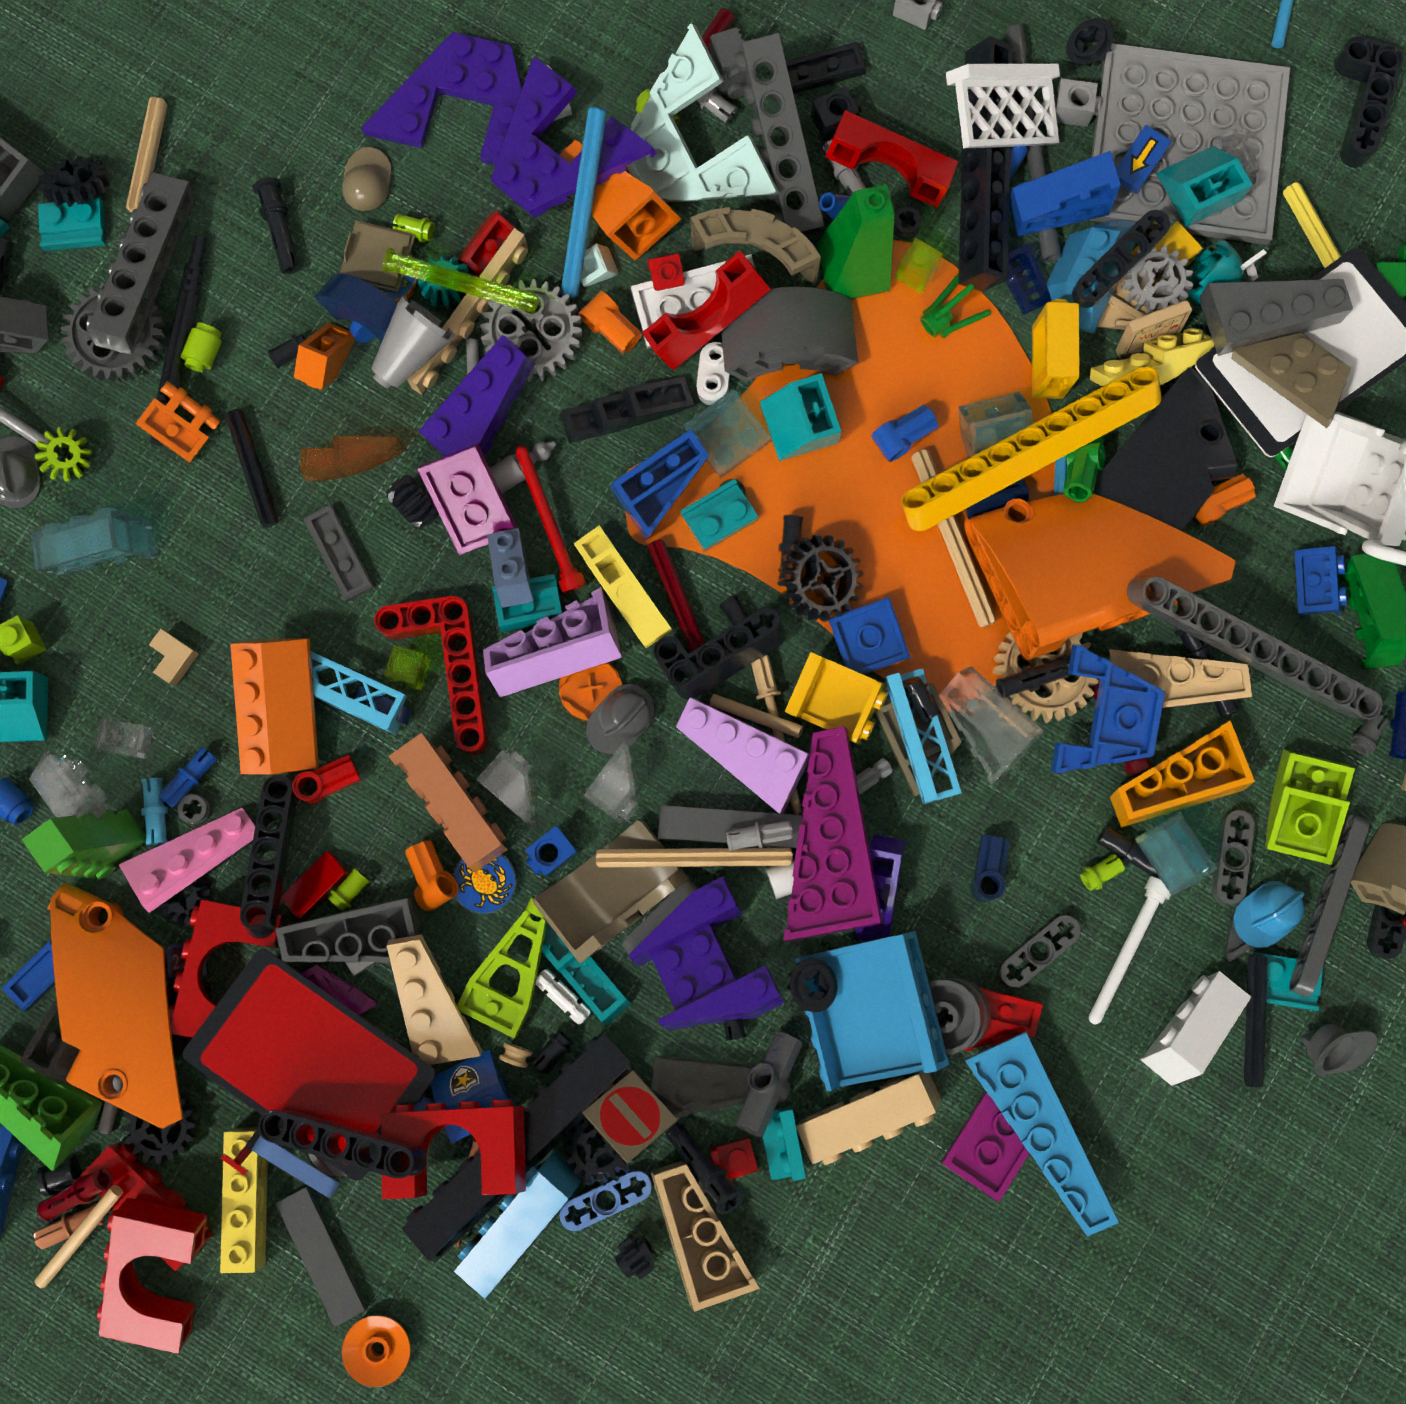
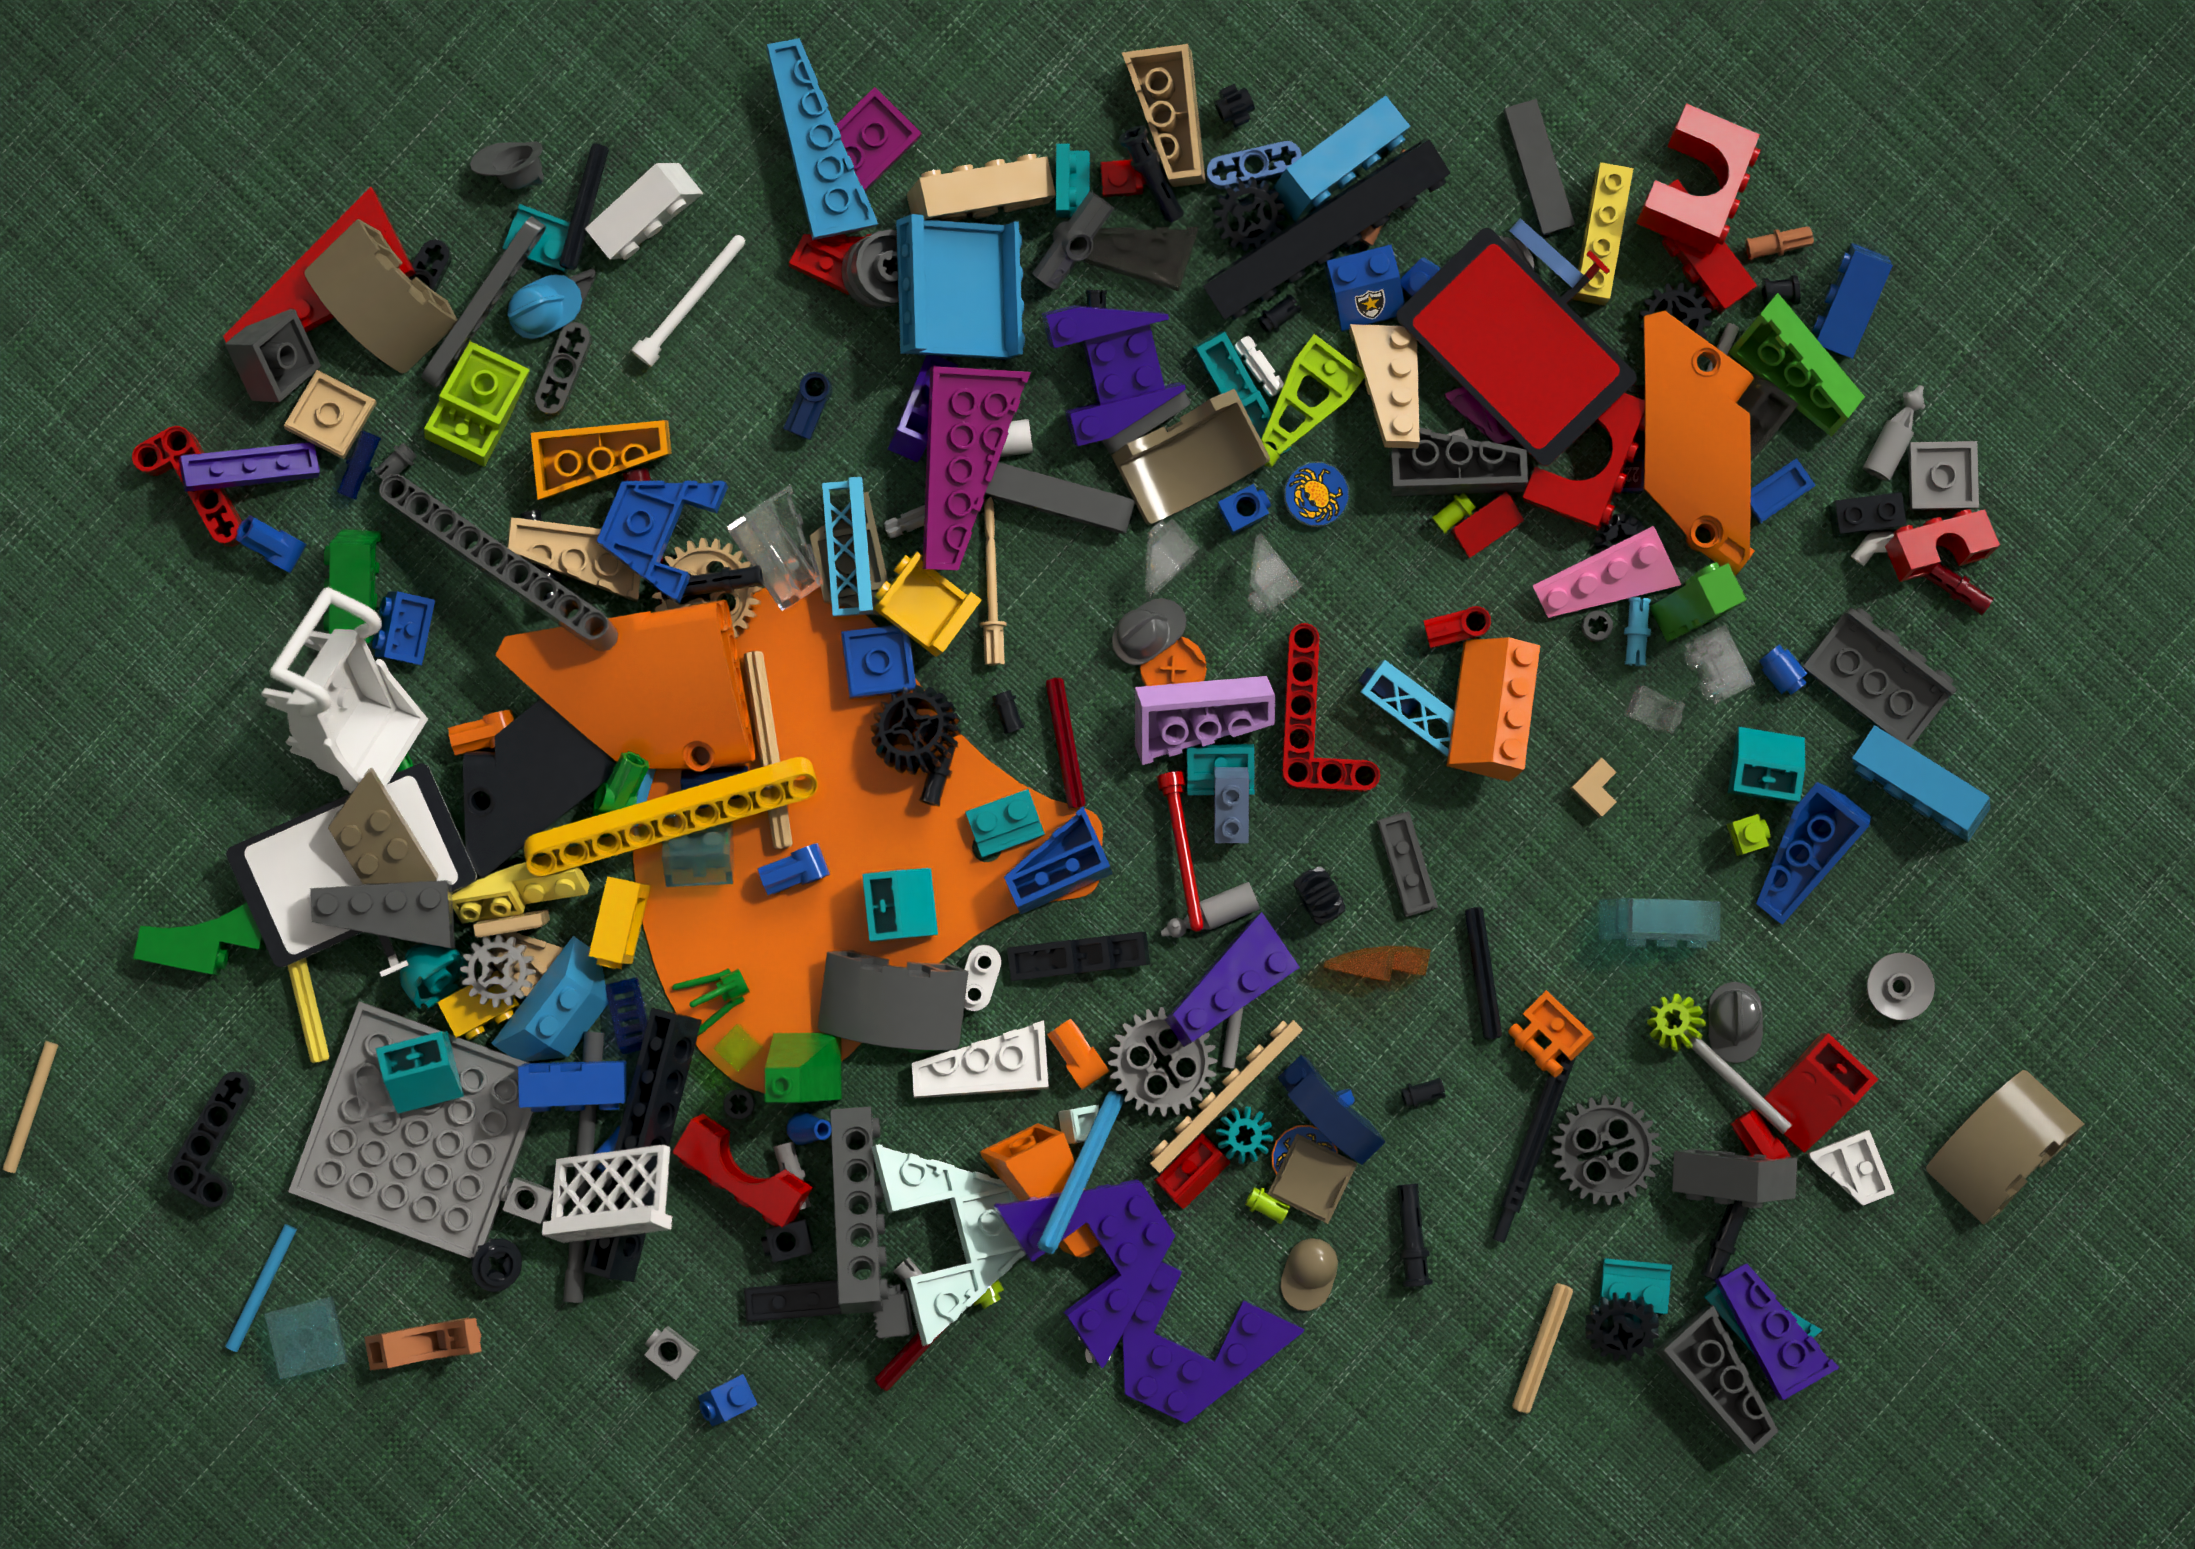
camera: 170 degrees left, 5 degrees up
(78, 1236) = (1767, 230): tan bar -> none
(81, 1191) = (1739, 272): dark red pin -> none
(161, 216) = (1590, 1133): dark grey brick -> none
(187, 777) = (1598, 657): blue axle -> none
(201, 347) = (1514, 1113): lime brick -> none
(274, 869) = (1524, 573): black beam -> none
(323, 355) = (1386, 1078): orange slope -> none
(357, 1143) = (1506, 261): black beam -> none
(364, 1363) = (1501, 53): orange dish -> none
(407, 667) = (1355, 725): clear neon green brick -> none
(408, 343) = (1290, 1058): light grey cone -> none
(434, 883) = (1367, 500): orange piece -> none
(450, 802) = (1334, 575): nougat wedge -> none
(459, 281) = (1226, 1120): clear neon green axle -> none
(466, 497) = (1261, 884): plate -> none
(495, 1129) = (1343, 247): red arch -> none
(515, 1055) = (1315, 318): tan bush -> none
(622, 587) = (1120, 765): light yellow slope -> none
(629, 1116) = (1214, 235): piece -> none
(666, 271) = (1008, 1097): red bracket -> none
(681, 335) = (1002, 1020): red arch -> none
(694, 857) = (1101, 473): tan axle -> none
(722, 649) = (1029, 677): black beam -> none
(728, 433) = (979, 907): clear light blue plate -> none
(753, 756) = (1028, 568): lavender wedge -> none
(756, 715) = (1010, 604): tan bar -> none
(758, 835) = (1033, 479): light grey axle -> none
(759, 230) = (903, 1101): dark tan panel -> none
(824, 980) = (998, 328): black gear -> none
(922, 700) = (841, 581): black pin -> none
(1052, 929) = (804, 311): dark grey beam -> none
(1101, 872) = (698, 380): lime pin -> none
(1119, 257) = (535, 998): black beam -> none
(1127, 849) = (665, 395): black pin -> none
(1142, 158) = (476, 1116): blue tile -> none
(1176, 853) = (623, 380): clear light blue slope -> none

